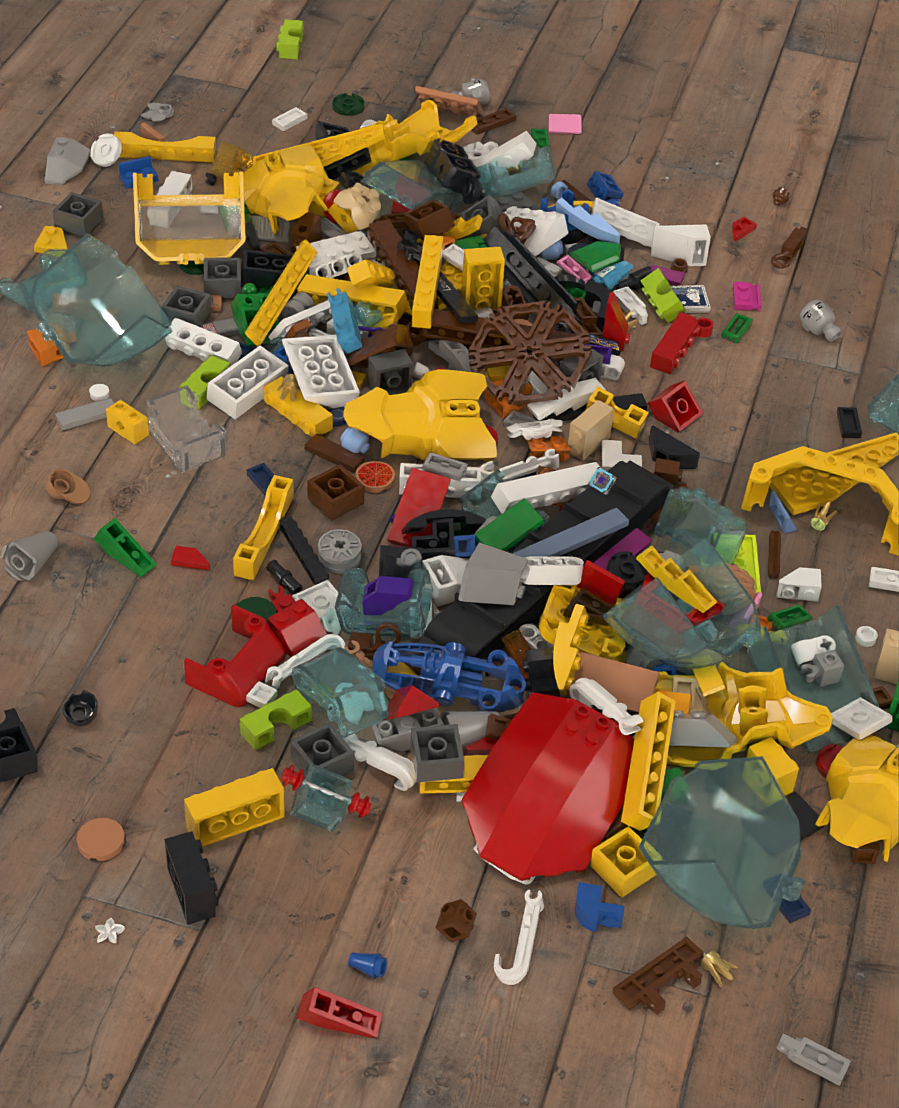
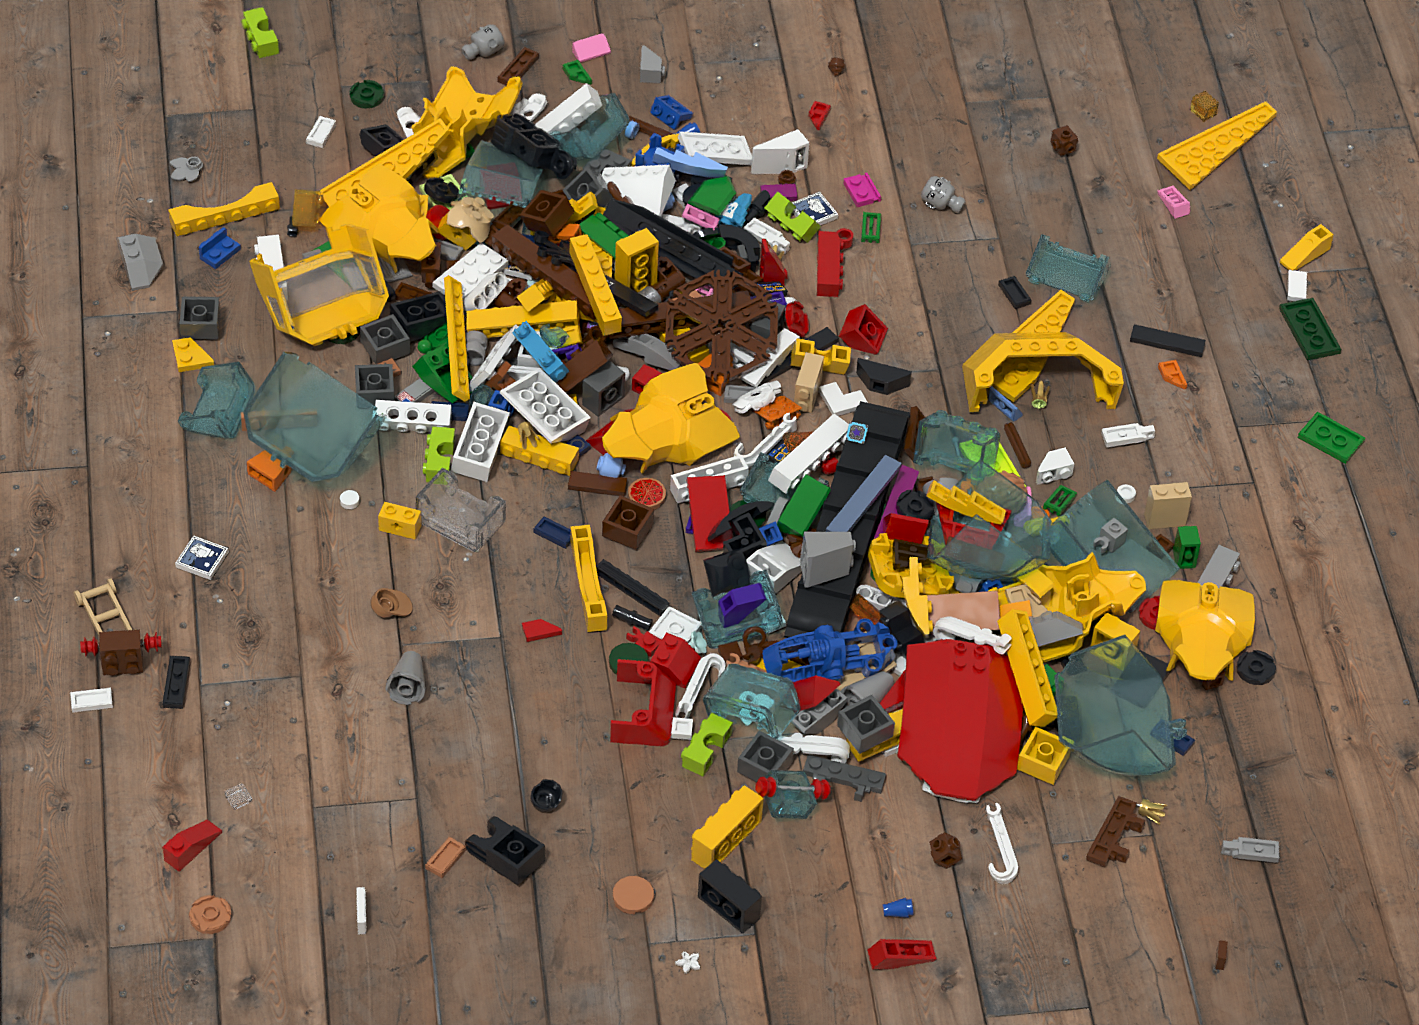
camera: 25 degrees left, 5 degrees up
(83, 414) = (353, 525): light grey tile -> none
(106, 150) = (173, 234): white tile -> none
(124, 548) = (481, 642): green slope -> none
(149, 133) = (202, 200): nougat tile -> none
(339, 550) = (664, 575): light grey wheel -> none
(410, 809) = (845, 774): none -> dark grey hinge
(444, 466) = (712, 468): light grey tile -> none
(449, 101) = (493, 60): nougat tile -> none
(454, 255) = (601, 244): white tile -> none
(496, 726) = (893, 684): reddish brown tile -> none
(525, 230) = (643, 188): reddish brown piece -> none
(554, 570) = (870, 530): white beam -> none
(591, 911) = (1039, 804): blue brick -> none
(607, 150) = (651, 67): none -> light grey slope
(613, 375) = (796, 319): none -> red tile
(668, 471) = (892, 398): reddish brown brick -> none
(790, 248) = (875, 124): reddish brown piece -> none
(806, 649) = (1092, 525): white piece -> none
(860, 718) = (1159, 568): white tile -> none

